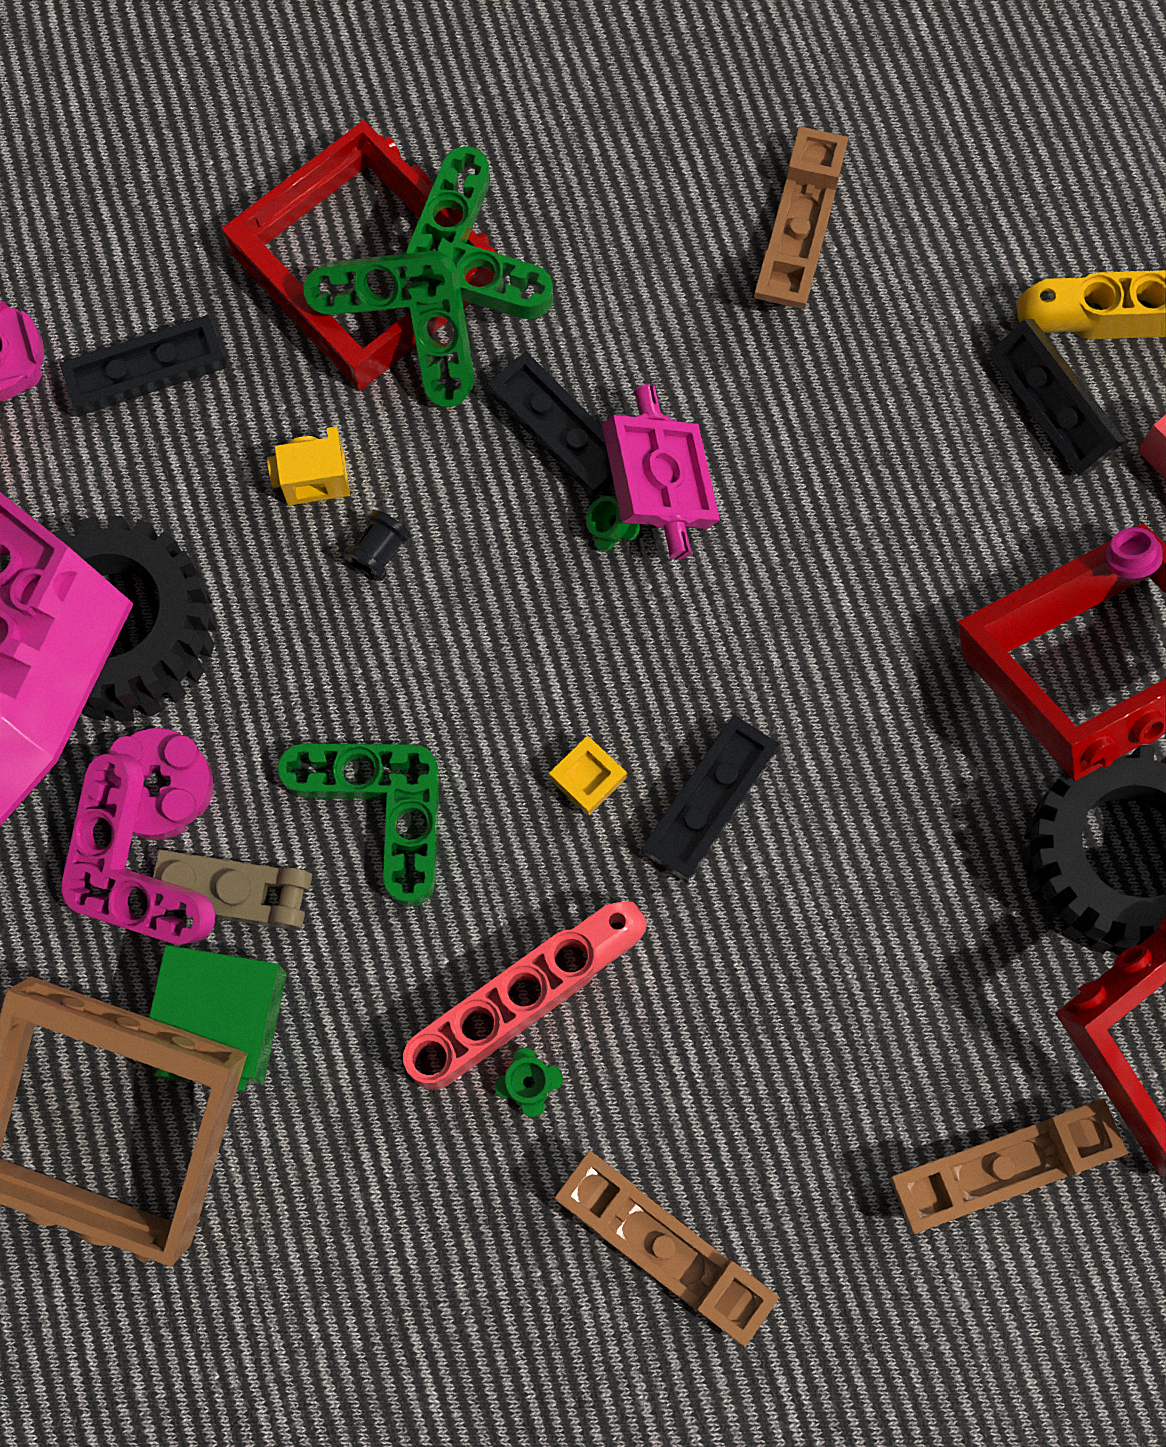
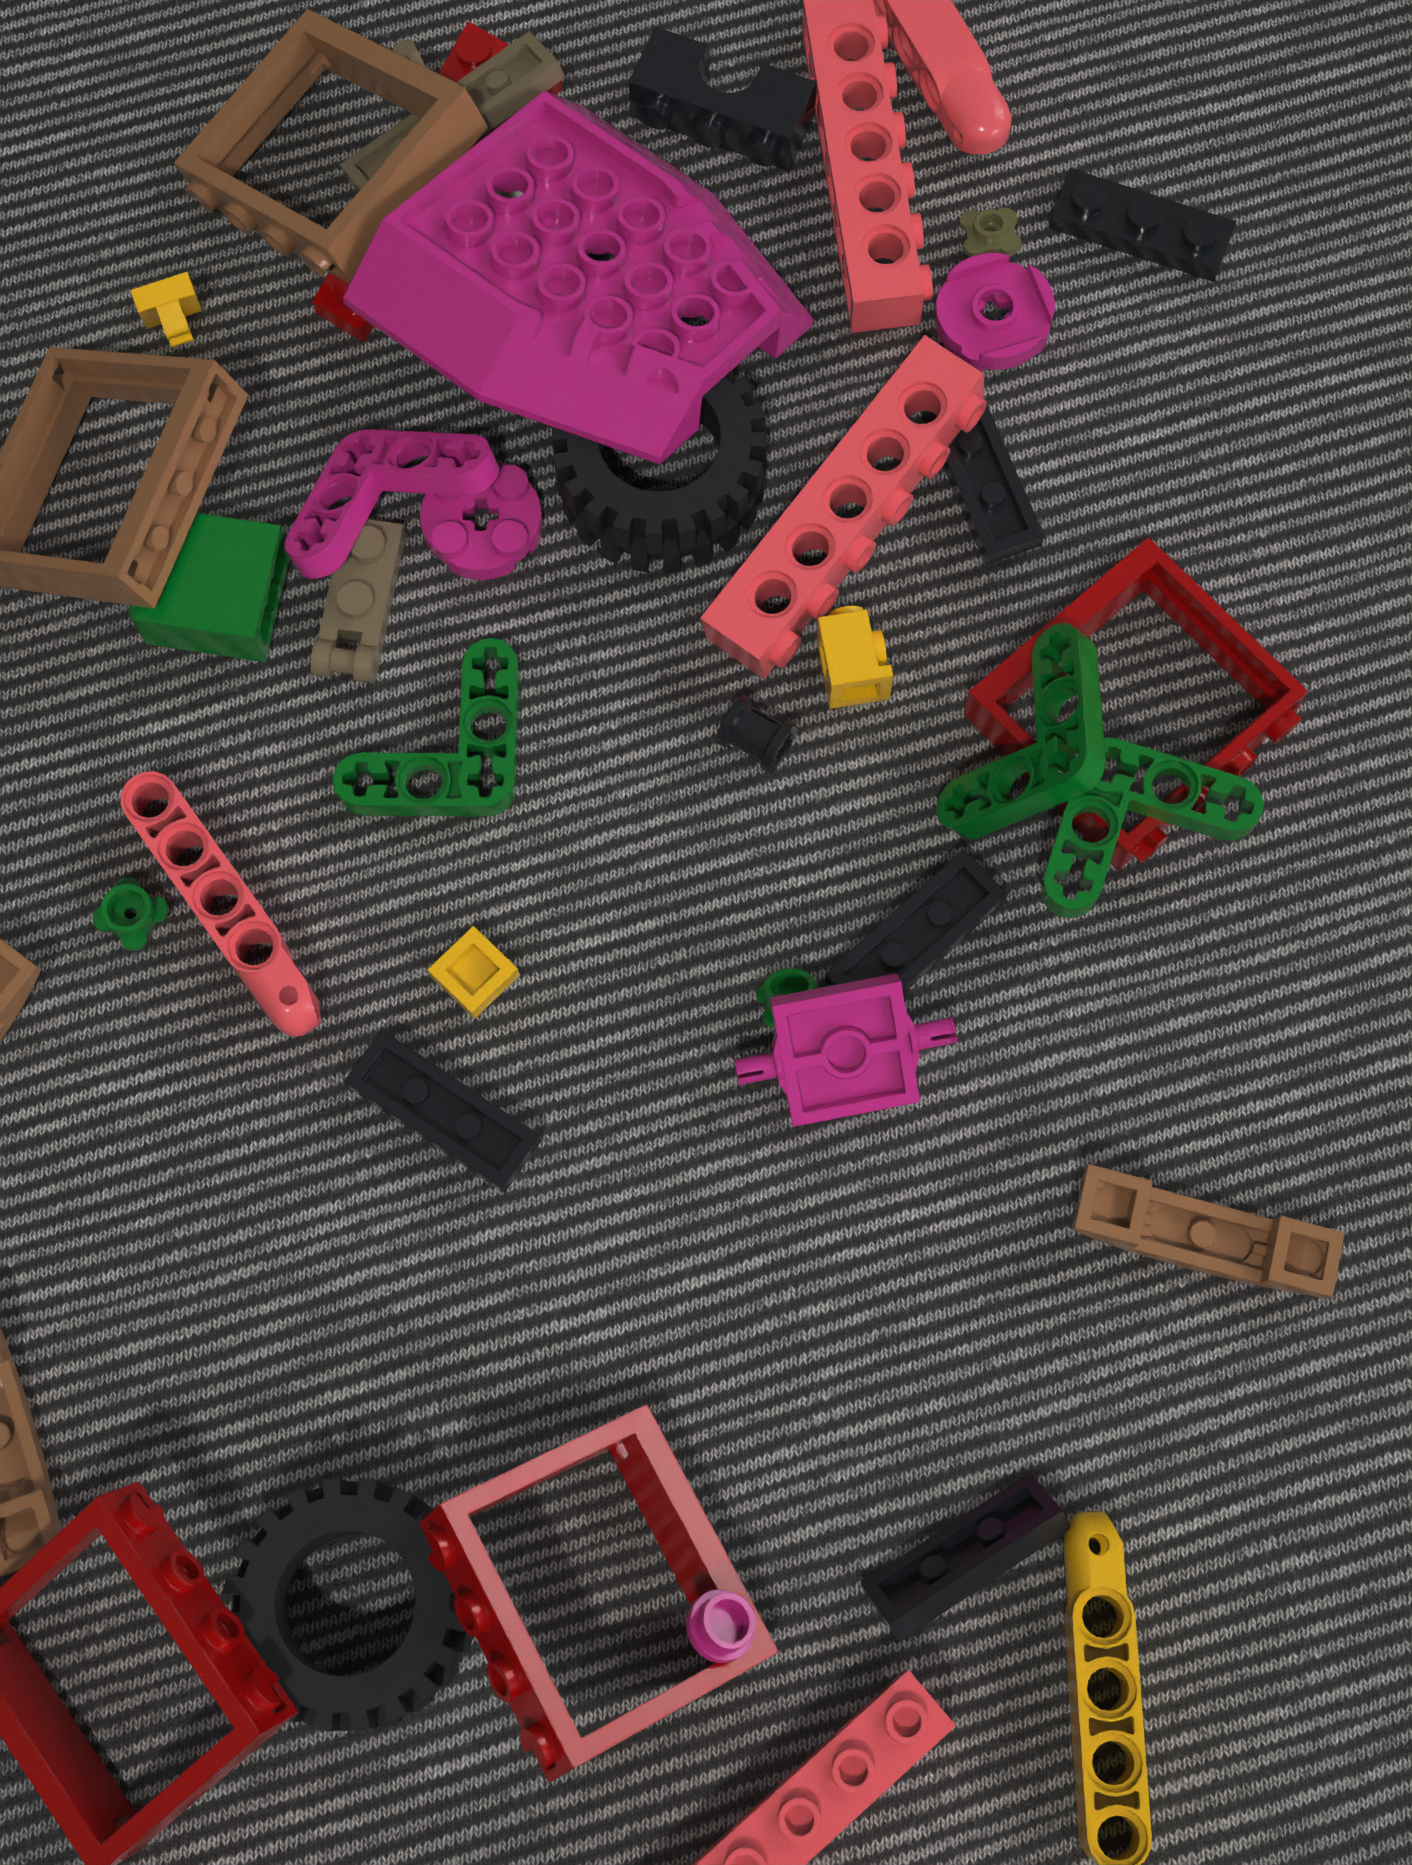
camera: 90 degrees right, 0 degrees up
(78, 371) = (925, 381): none -> coral brick

